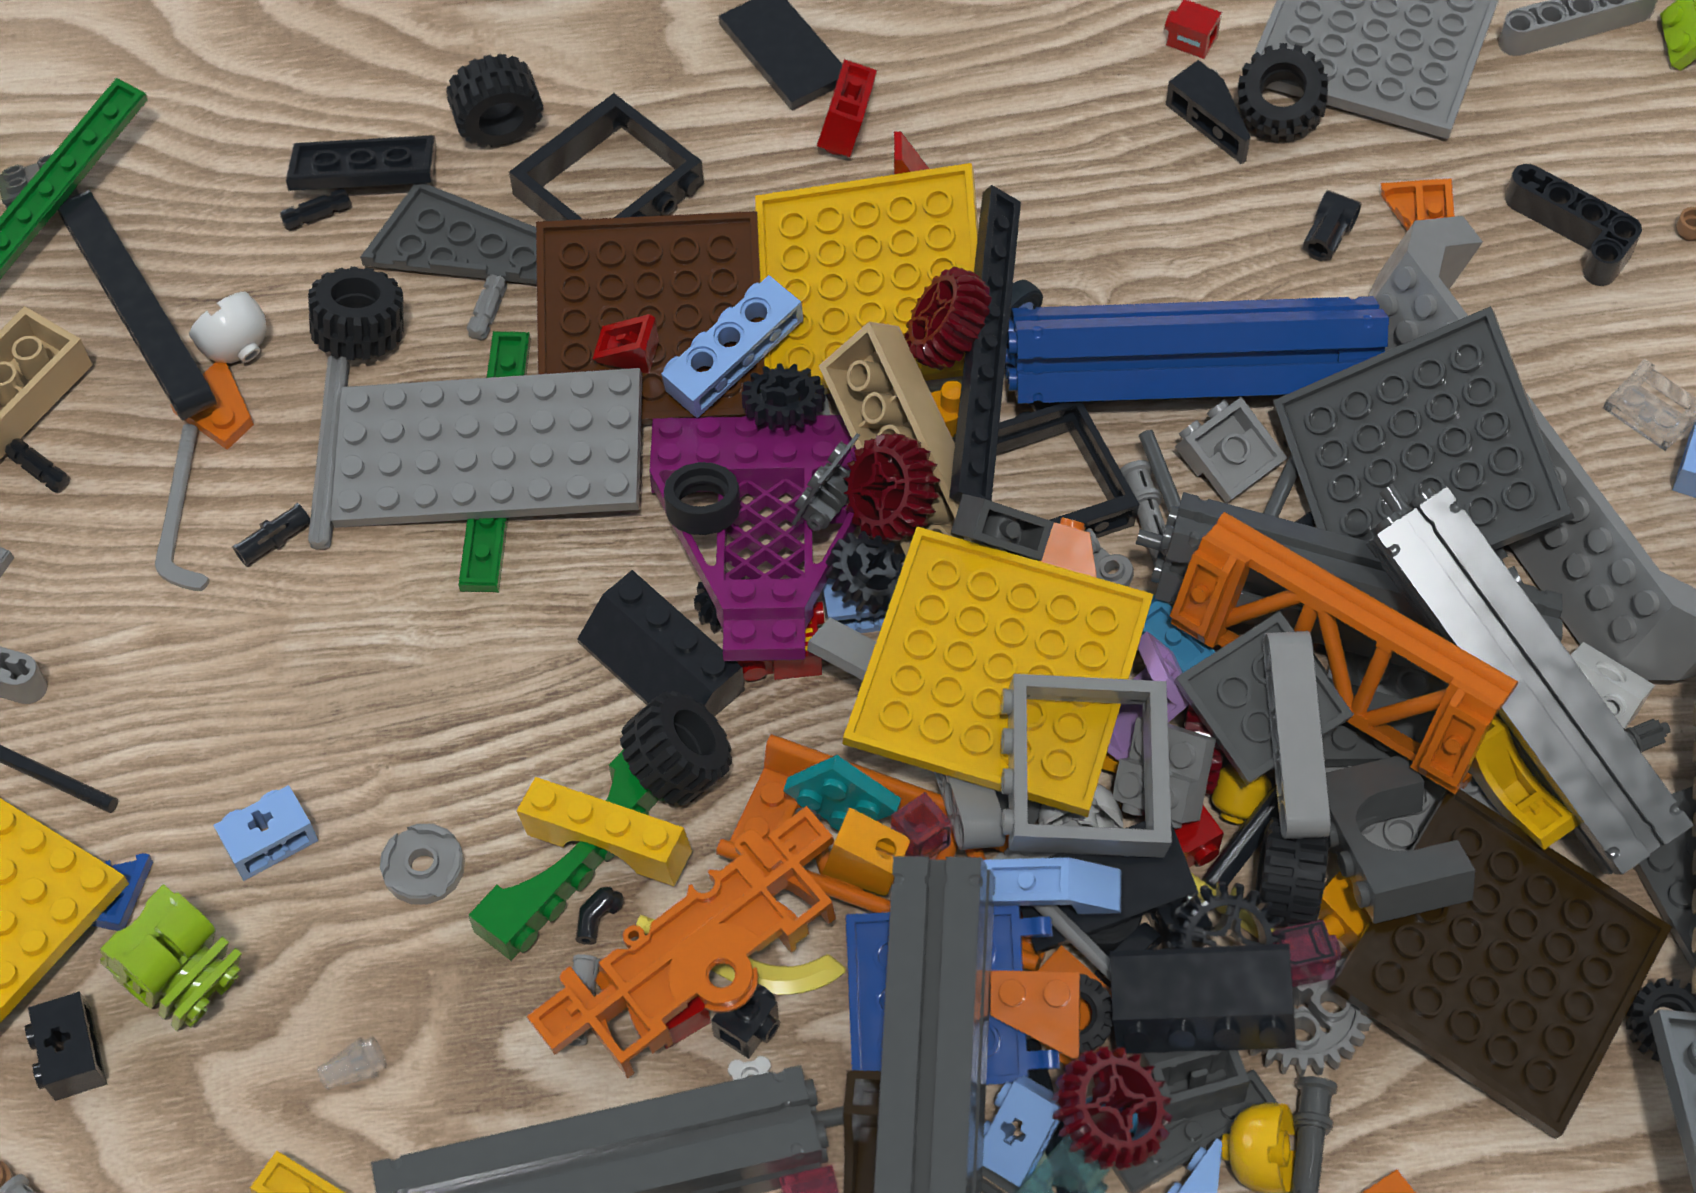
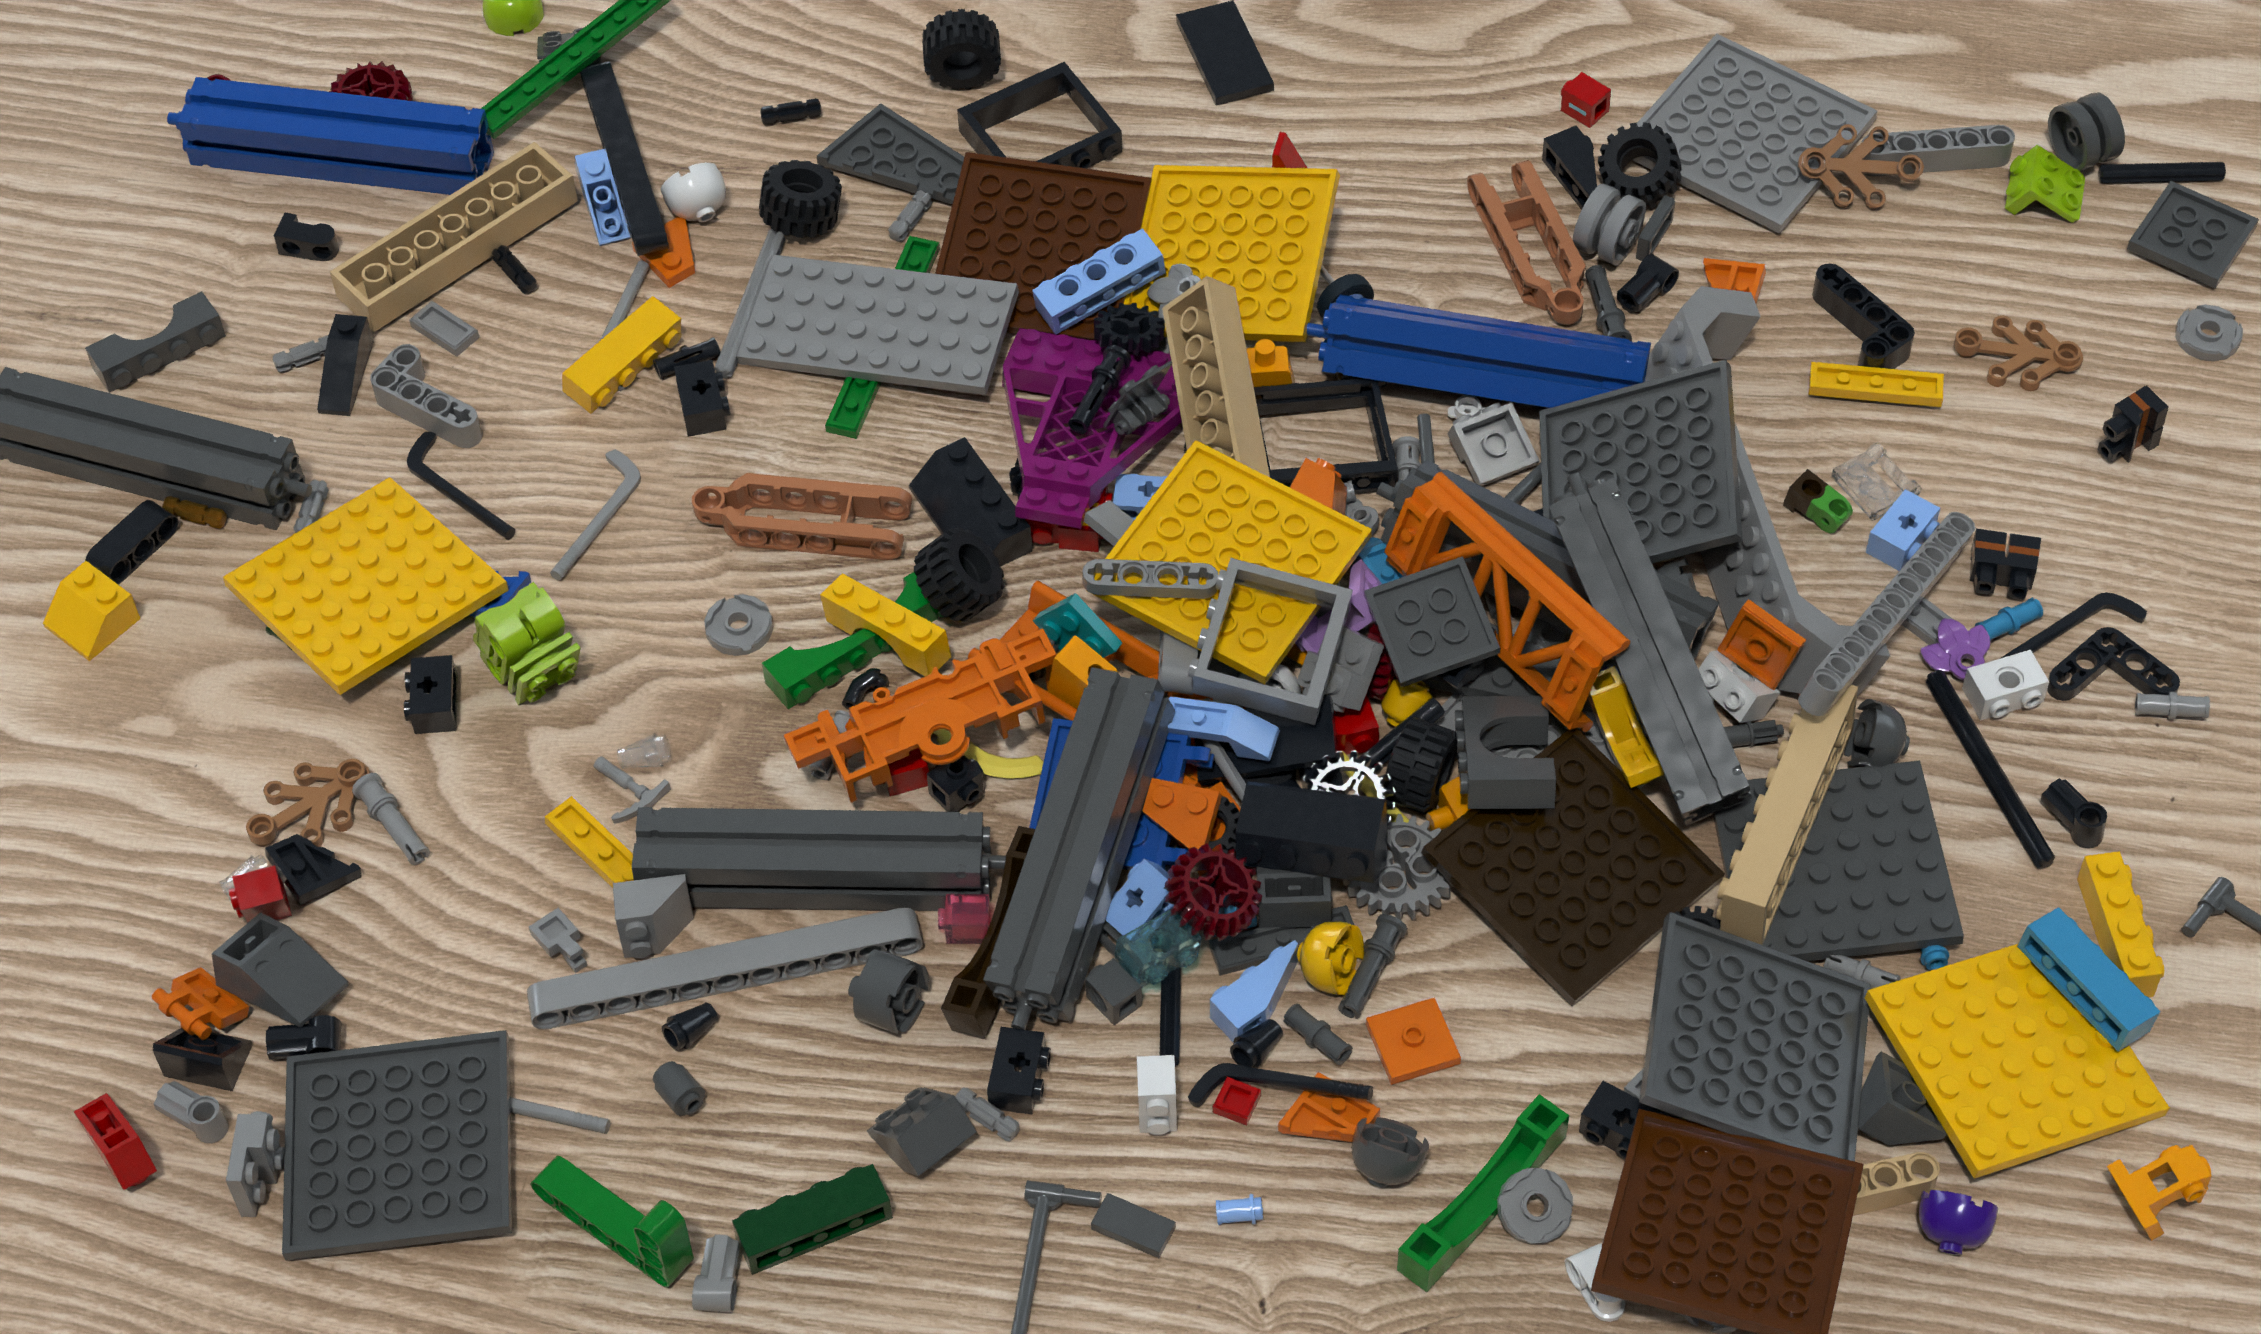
camera: 15 degrees right, 5 degrees down
(120, 356) = (601, 197): none -> light blue slope
(193, 548) = (622, 355): none -> yellow brick
(241, 712) = (627, 487): none -> light grey piece
(257, 850) = (623, 575): light blue brick -> none
(302, 582) = (700, 397): none -> black brick
(361, 163) = (839, 80): black tile -> none
(370, 1122) = (646, 796): none -> light grey piece
(372, 710) = (841, 537): none -> nougat piece
(628, 343) = (1015, 263): red slope -> none
(702, 519) = (1035, 406): black tyre -> none
(776, 465) = (1105, 378): none -> black pin
(820, 338) = (1168, 288): none -> light grey plate
(847, 108) = (1260, 111): red slope -> none
(850, 564) = (1145, 468): black gear -> none
(891, 486) = (1189, 409): dark red gear -> none
(917, 709) = (1150, 572): none -> light grey beam
(924, 826) = (1133, 660): clear pink brick -> none
(948, 318) = (1275, 287): dark red gear -> none
(985, 363) = (1300, 317): black plate -> none
(1002, 527) = (1265, 454): dark grey brick -> none
(1185, 162) = (1536, 210): none -> nougat piece
(1185, 406) = (1465, 405): none -> white plate
(1274, 166) = (1609, 224): none -> light grey wheel
(1296, 735) = (1445, 650): light grey beam -> none
(1305, 273) = (1609, 318): none -> dark grey pin
(1311, 952) = (1409, 823): clear pink brick -> none
(1319, 160) = (1655, 228): none -> dark grey tile
(1507, 48) = (1854, 166): none -> medium nougat plant
(1607, 443) = (1818, 502): none -> leg
(1615, 291) = (1876, 384): none -> yellow plate
(1631, 638) = (1761, 644): none -> orange plate

